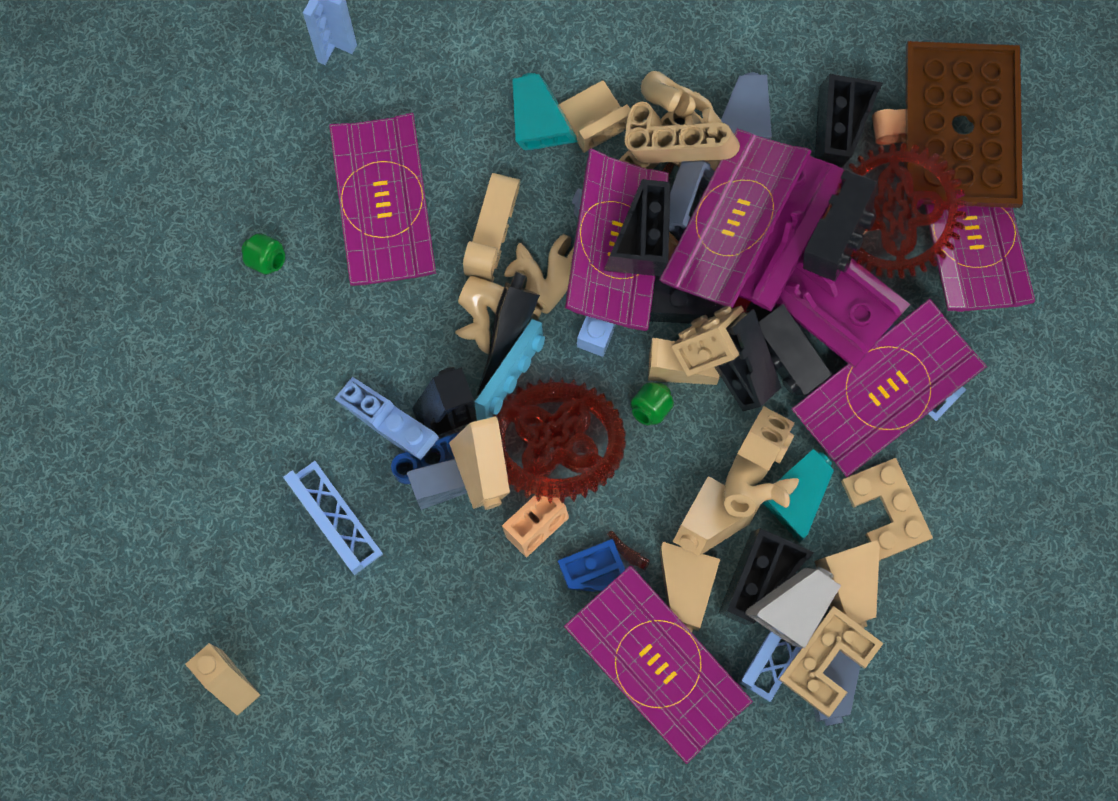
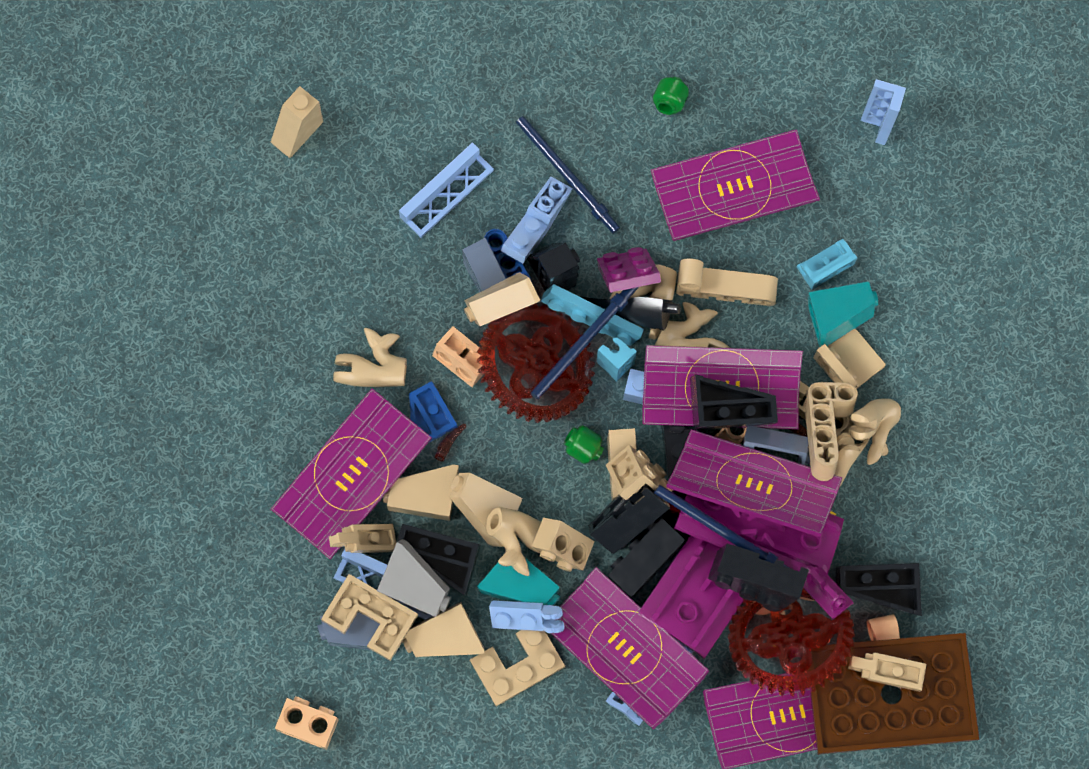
camera: 80 degrees right, 0 degrees up
(384, 351) = (599, 211): none -> dark blue bar
(465, 323) = (628, 269): none -> magenta plate
(482, 121) = (827, 264): none -> medium azure hinge
(503, 338) = (617, 303): none -> dark blue bar
(538, 634) = (367, 374): none -> tan piece
(566, 354) = (616, 362): none -> medium azure hinge
(735, 656) = (365, 538): none -> tan hinge
(749, 106) = (874, 497): sand blue slope -> none
(781, 260) = (712, 524): none -> dark blue bar
(841, 489) = (526, 616): none -> light blue hinge
(862, 161) = (826, 592): none -> magenta hinge
(943, 755) = (304, 729): none -> light nougat brick
(945, 116) = (890, 670): none -> tan hinge

